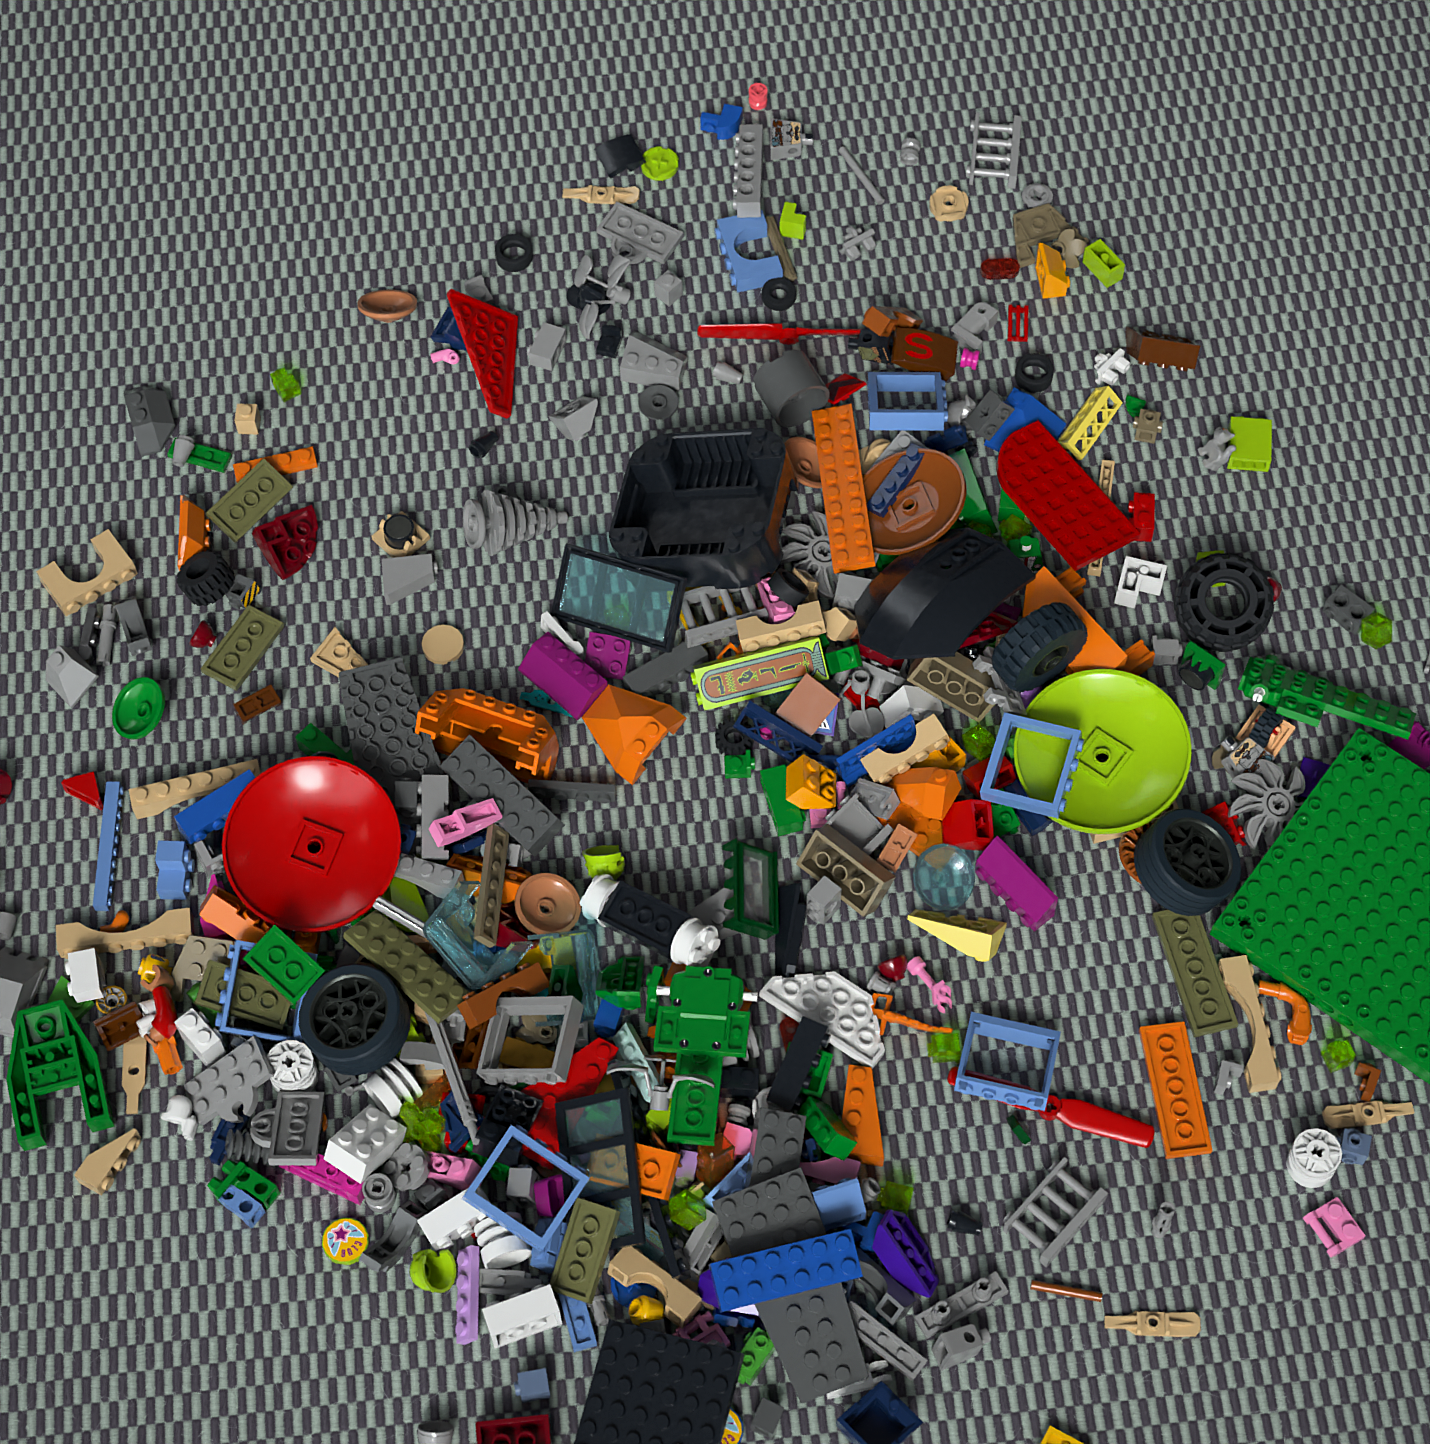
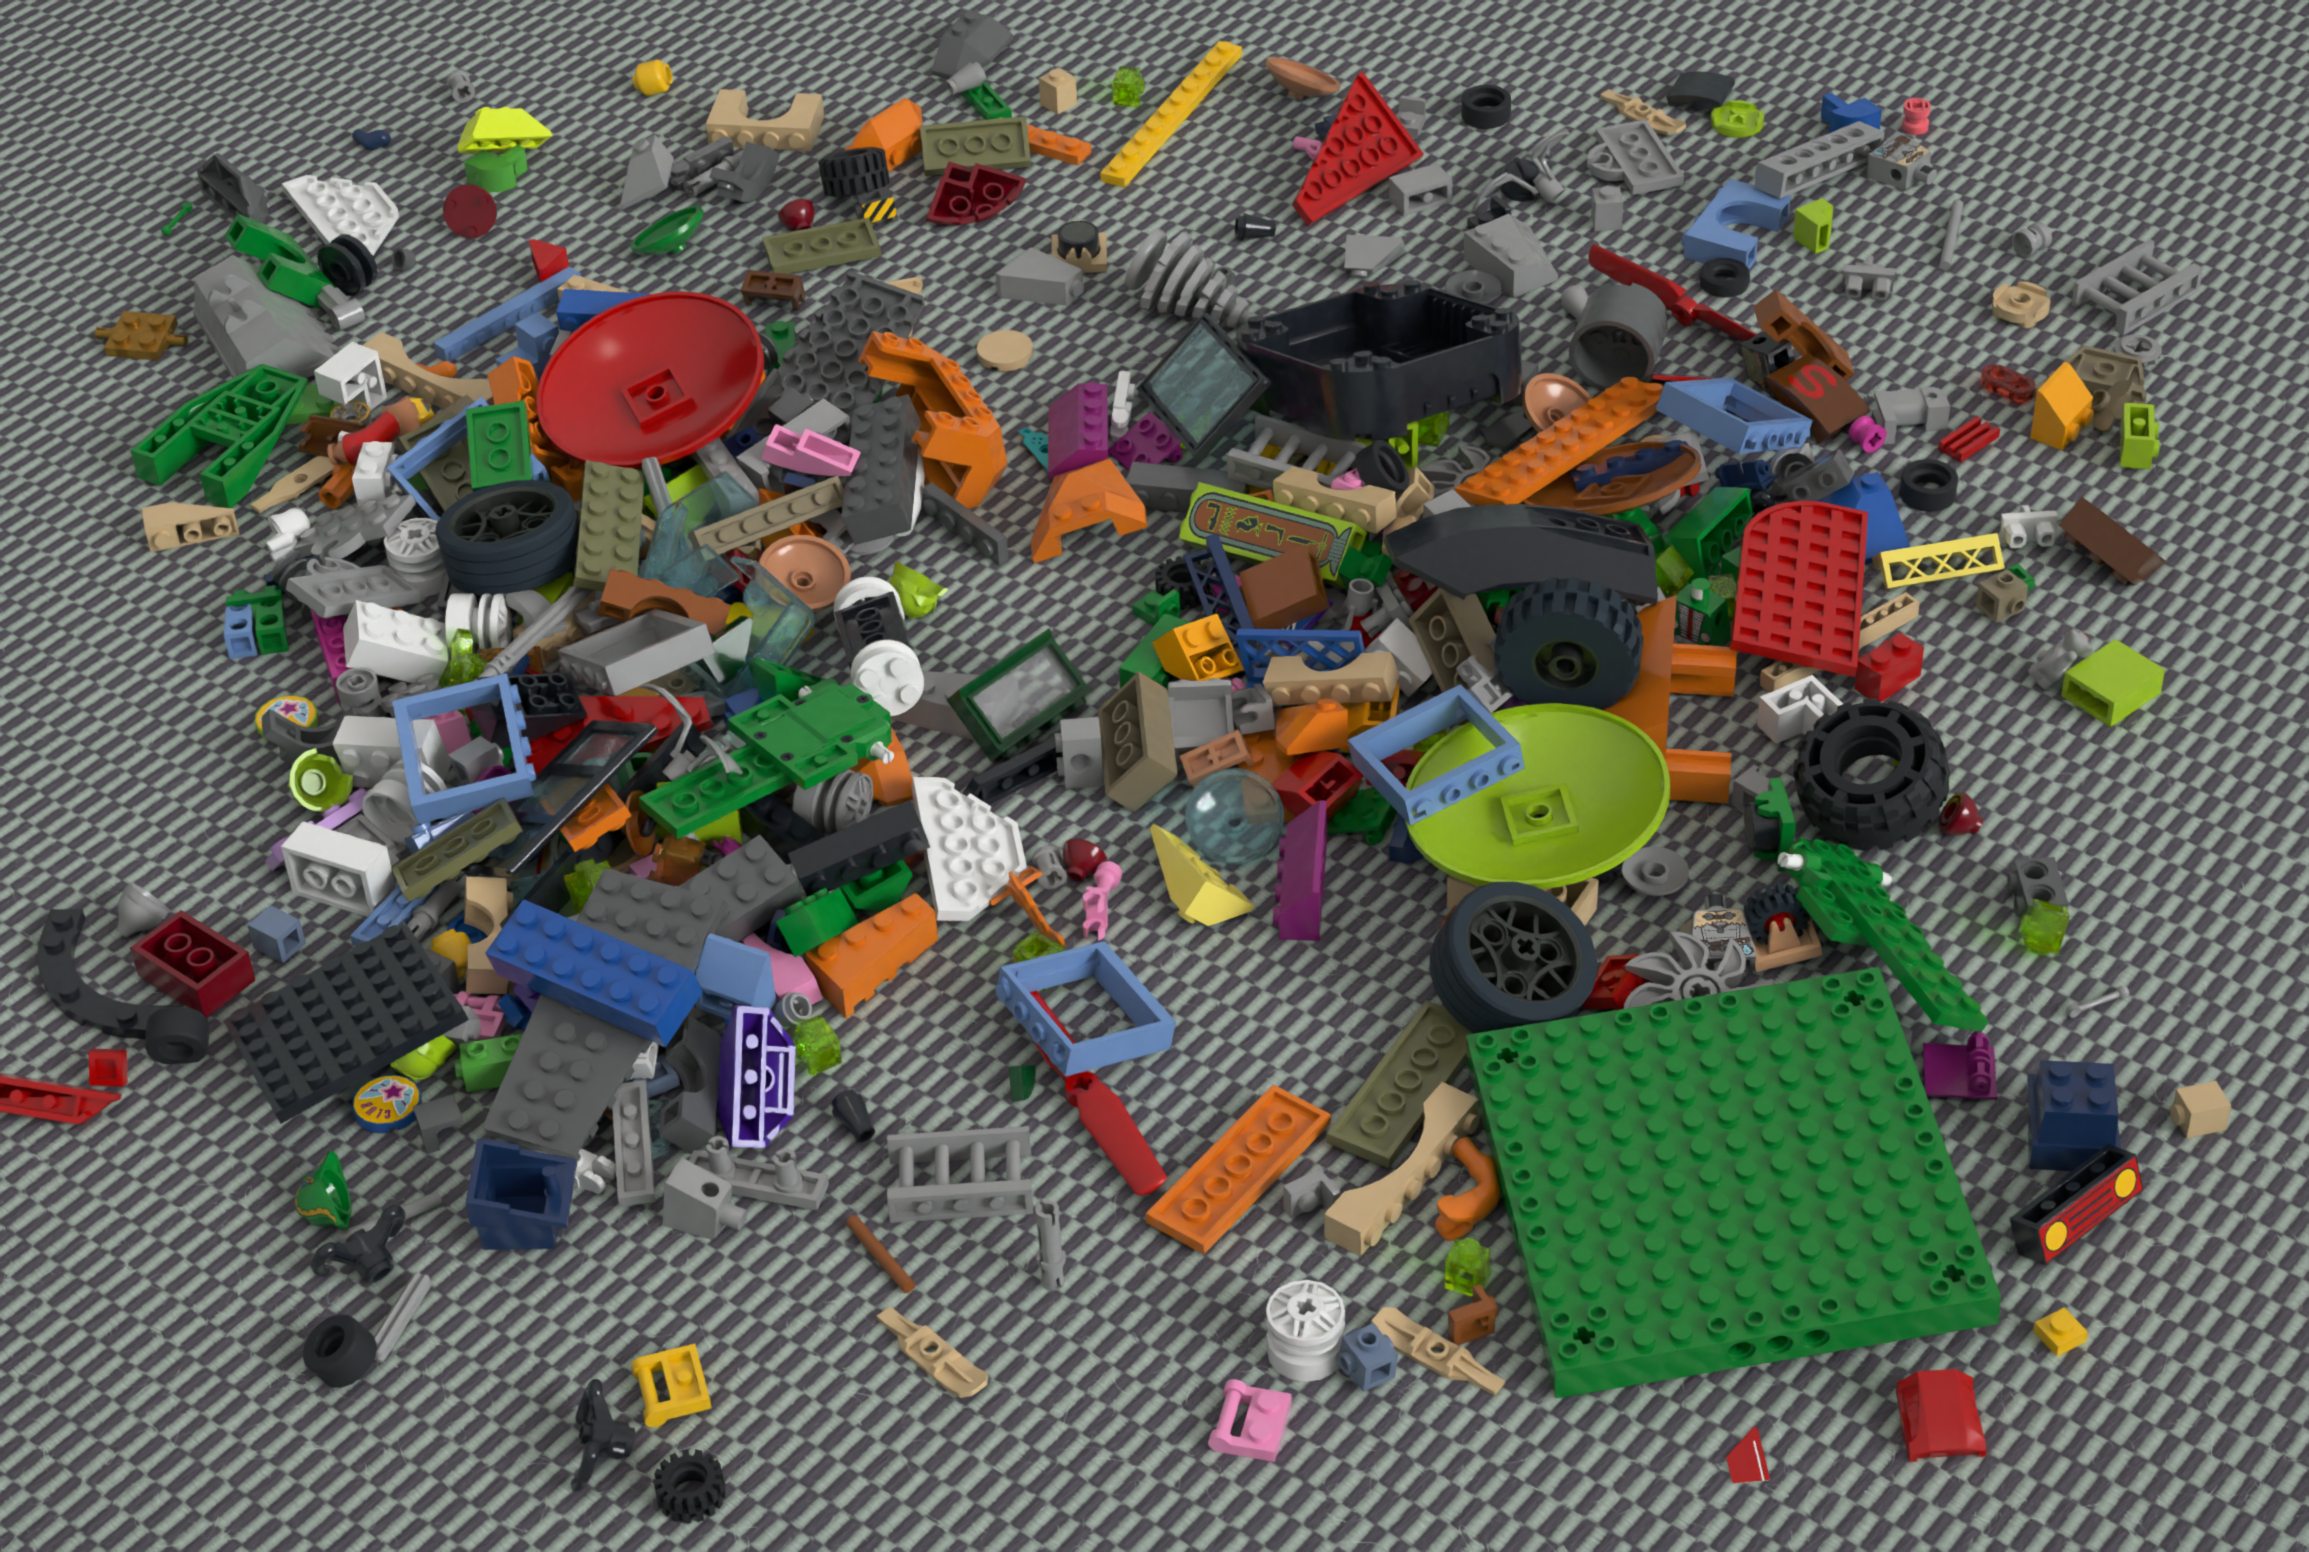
camera: 45 degrees right, 20 degrees down
(331, 386) = (1171, 114): none -> yellow plate
(780, 249) = (1773, 246): dark tan axle -> none

